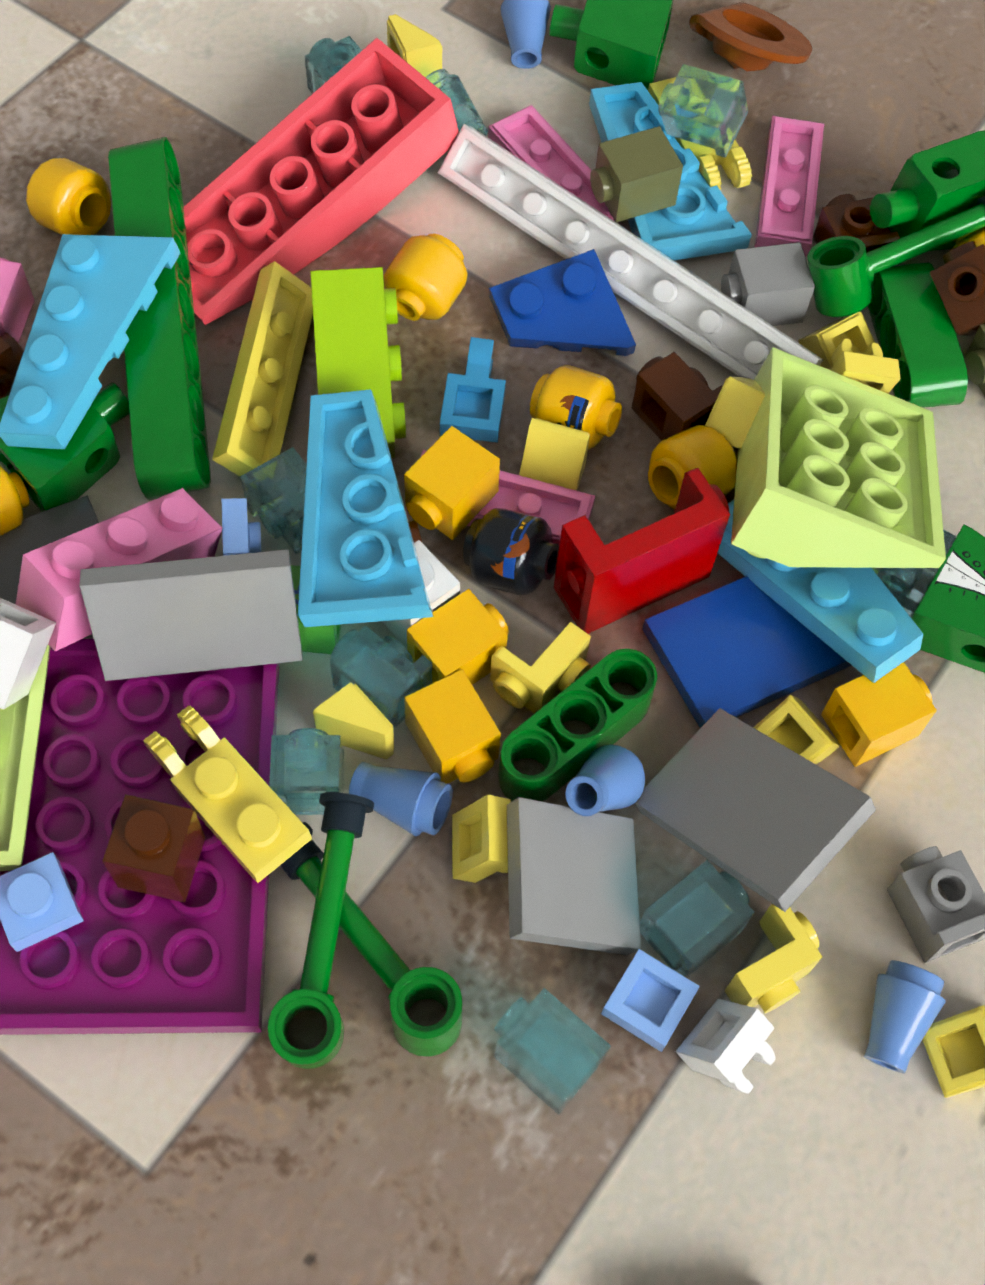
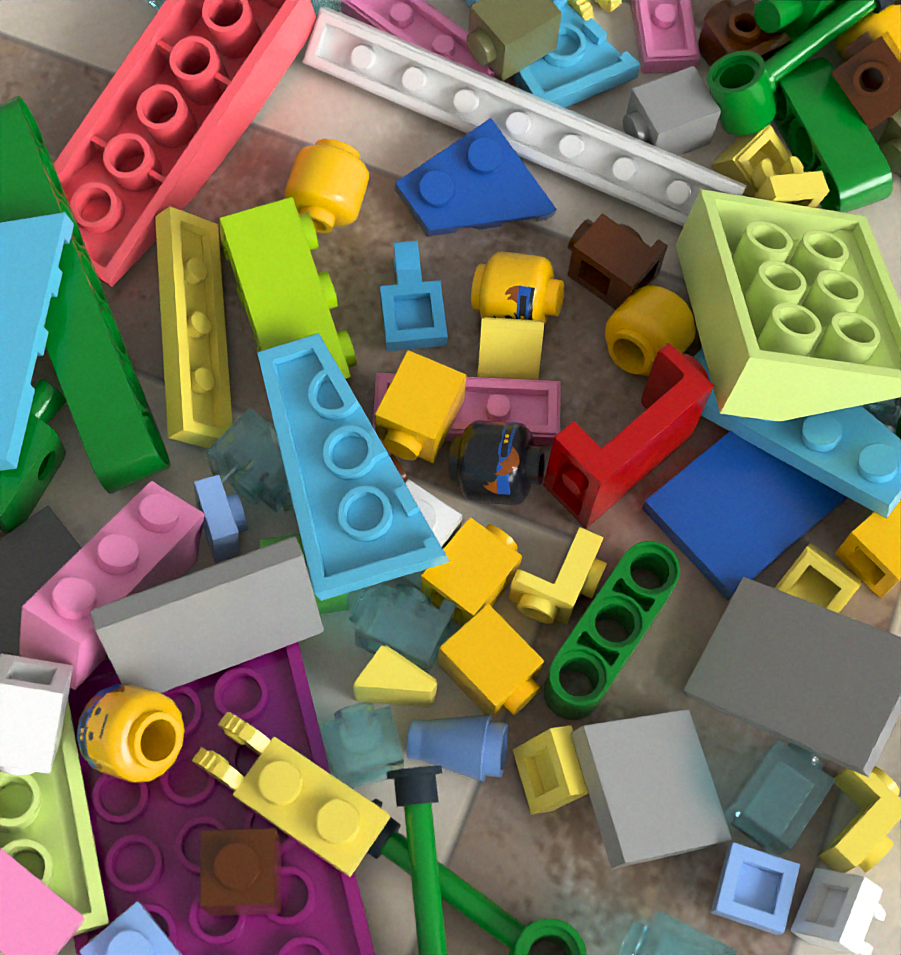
camera: 15 degrees left, 5 degrees up
(92, 698) = (130, 732): none -> yellow head
(606, 782) = (656, 681): medium blue cone -> none
(736, 409) = (681, 261): light yellow slope -> none

